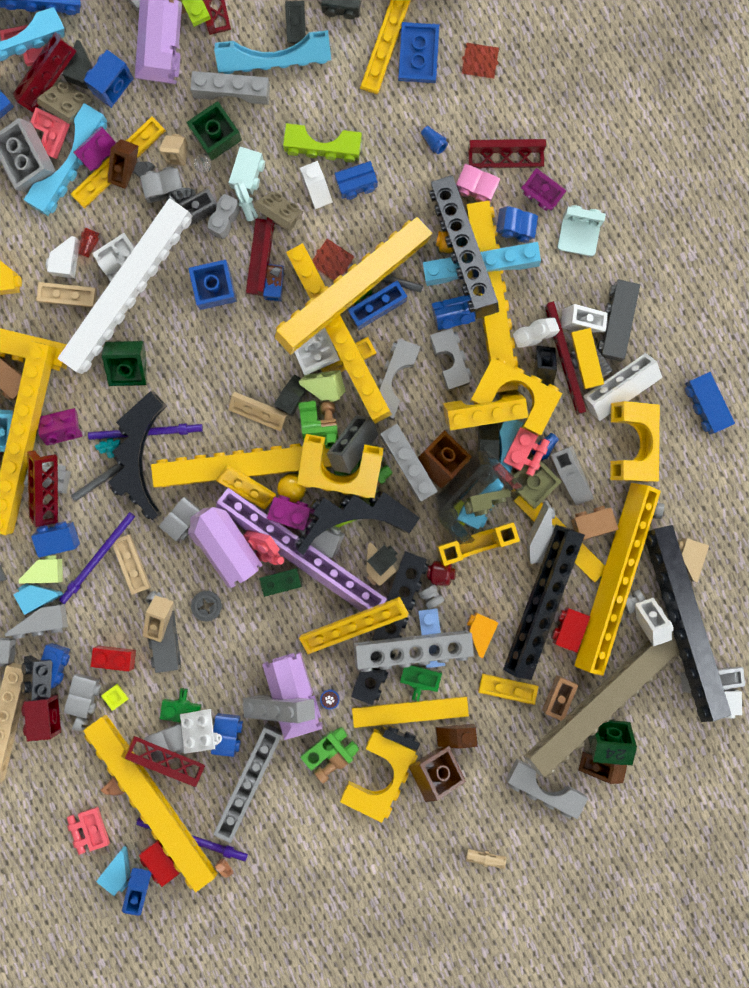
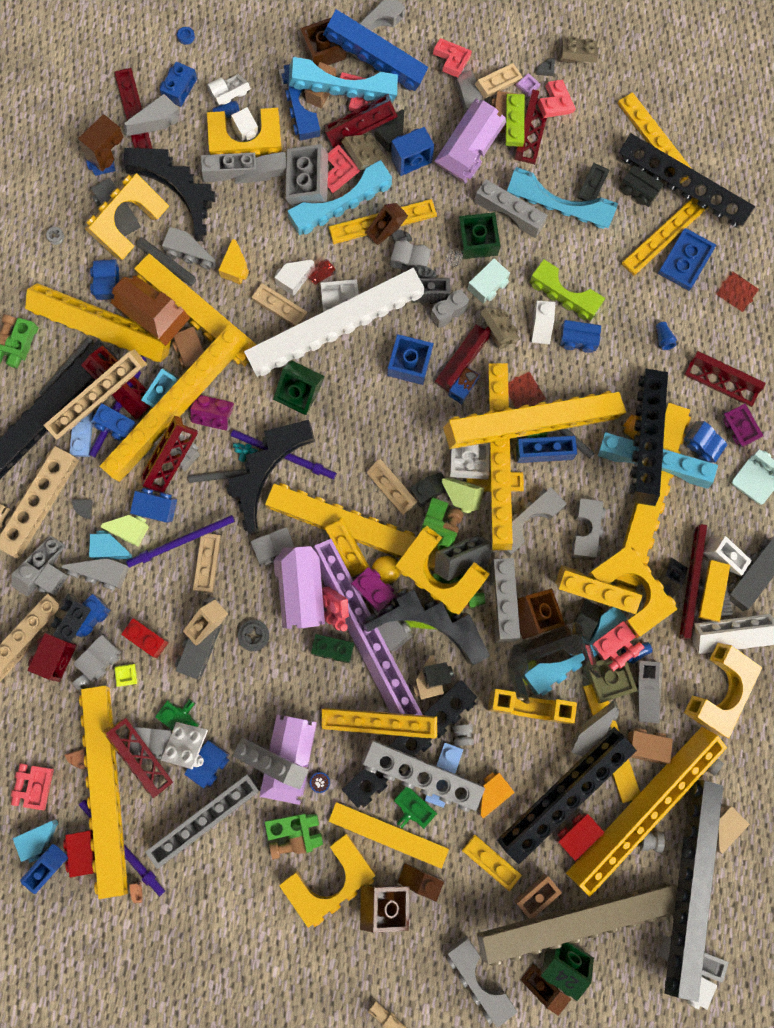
camera: 20 degrees right, 10 degrees down
(95, 149) = (369, 200): magenta bracket -> none
(174, 149) = (436, 234): tan slope -> none
(245, 201) = (475, 305): light aqua axle -> none
(392, 733) = (372, 859): black plate -> none
(440, 574) = (483, 719): dark red head -> none
(452, 313) = (610, 489): blue brick -> none
(477, 184) = (686, 391): bright pink brick -> none
(482, 503) = (555, 670): olive plate -> none
(536, 332) = (678, 544): white brick -> none
(654, 621) = (663, 869): white brick -> none

